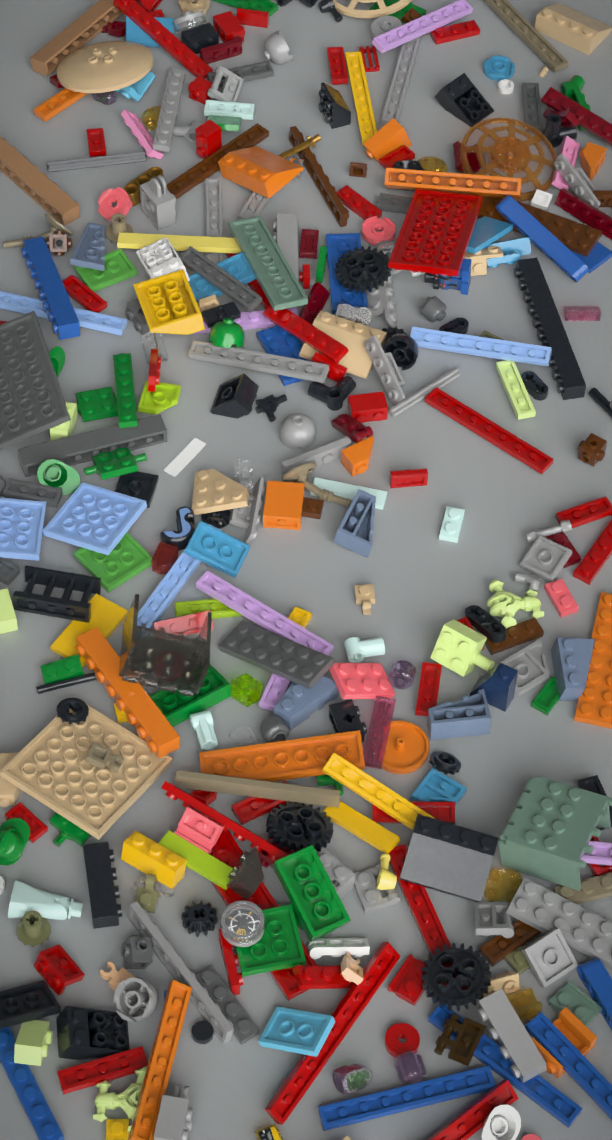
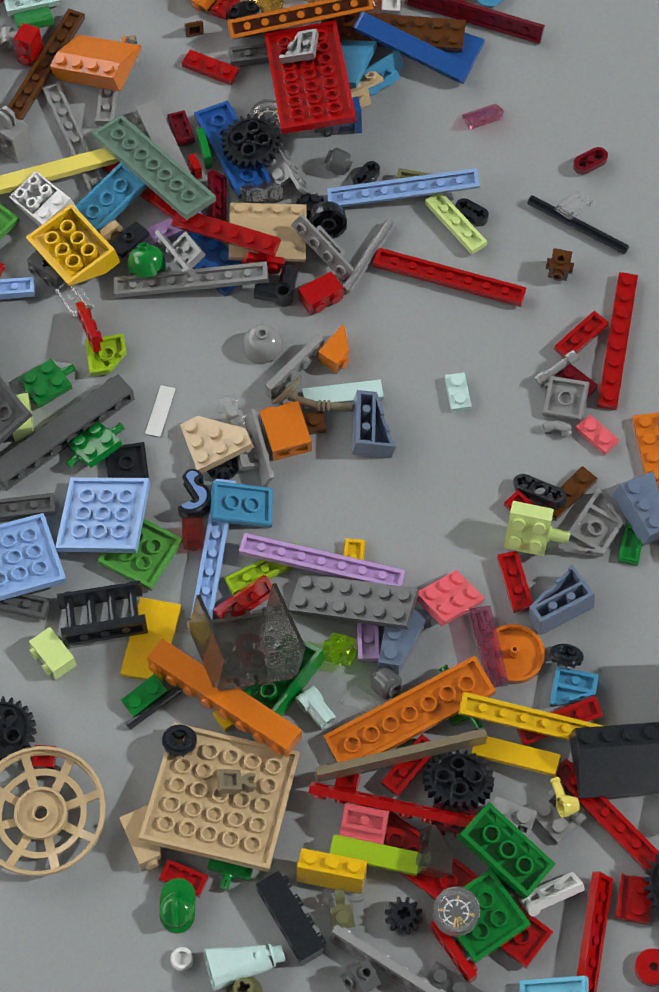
camera: 20 degrees left, 10 degrees up
(58, 475) = (44, 480): piece -> none
(125, 390) = (69, 359): green plate -> none
(220, 279) = (112, 200): dark grey plate -> none
(235, 397) = (183, 327): black slope -> none
(261, 337) = (184, 250): none -> light grey bracket
(269, 405) = (220, 324): black piece -> none
(310, 142) = (136, 13): pearl gold sword -> none
(320, 179) = (157, 49): reddish brown plate -> none
(320, 977) = (554, 933): red plate -> none
(345, 718) = (451, 636): black brick -> none
(351, 427) = (316, 322): dark red plate -> none
(351, 970) = (578, 916): light nougat plate -> none
(359, 649) = (429, 563): light aqua piece -> none
(366, 596) = (408, 502): tan plate -> none
(372, 224) = (242, 99): coral plate -> none
(402, 674) = (483, 575): clear purple head -> none
(408, 478) = (395, 357): red plate -> none
(440, 207) = (302, 47): none -> light grey wing
(498, 686) = (583, 554): dark blue slope -> none
(507, 604) = (552, 461): yellowish green piece -> none
(550, 328) = (460, 143): black brick -> none

